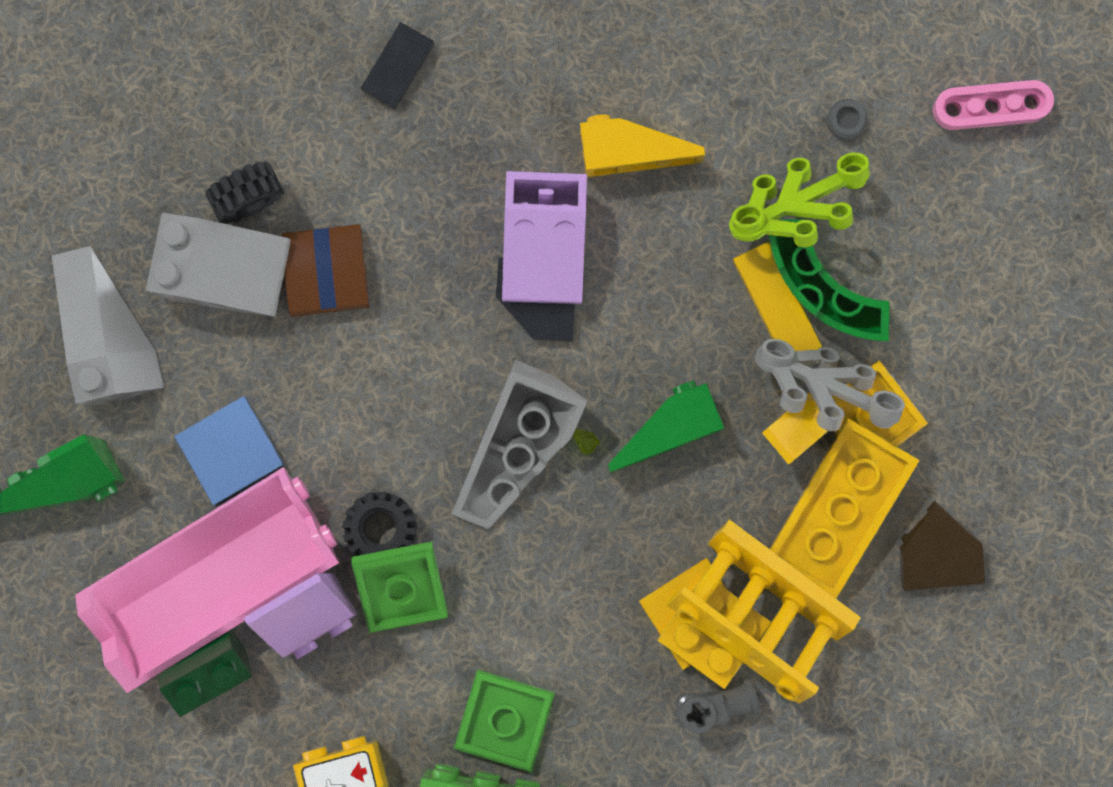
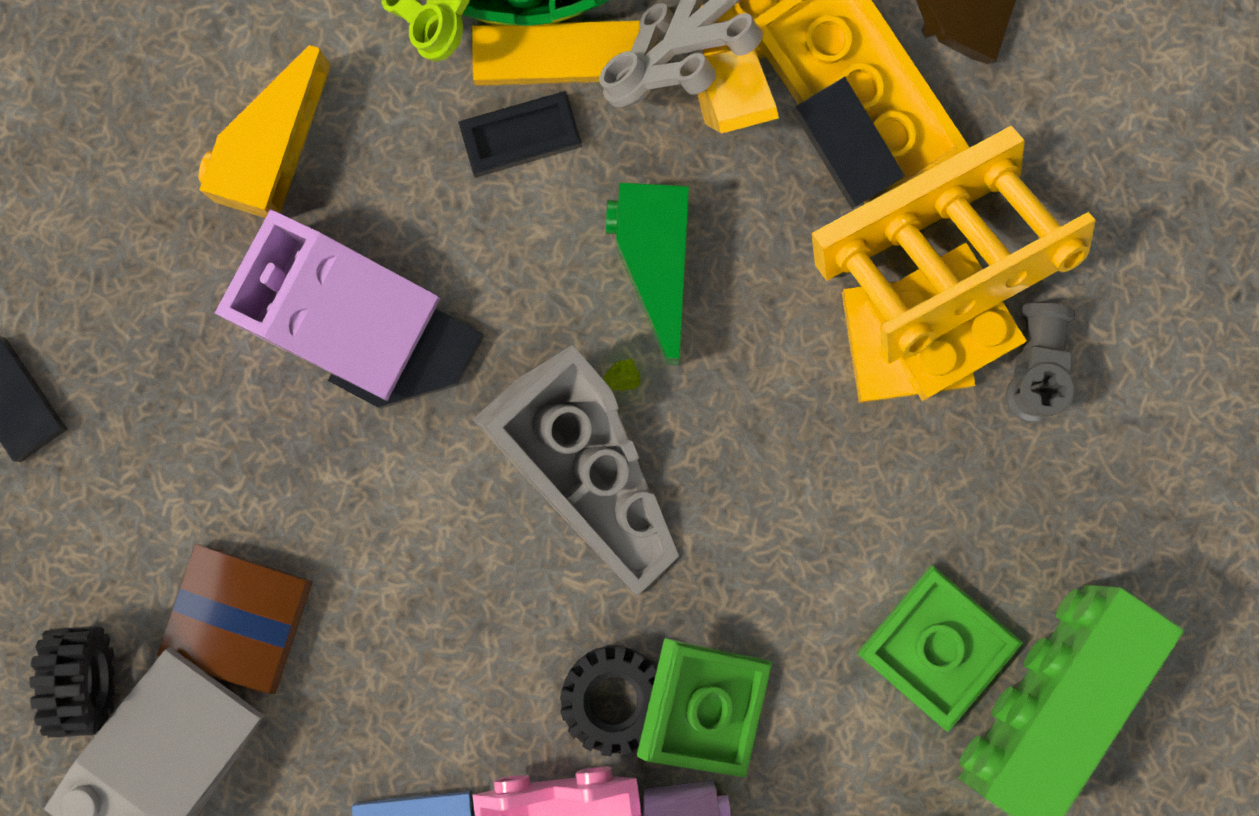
camera: 65 degrees left, 0 degrees up
(713, 304) = (520, 134): none -> black tile
(799, 517) = (848, 142): none -> black tile

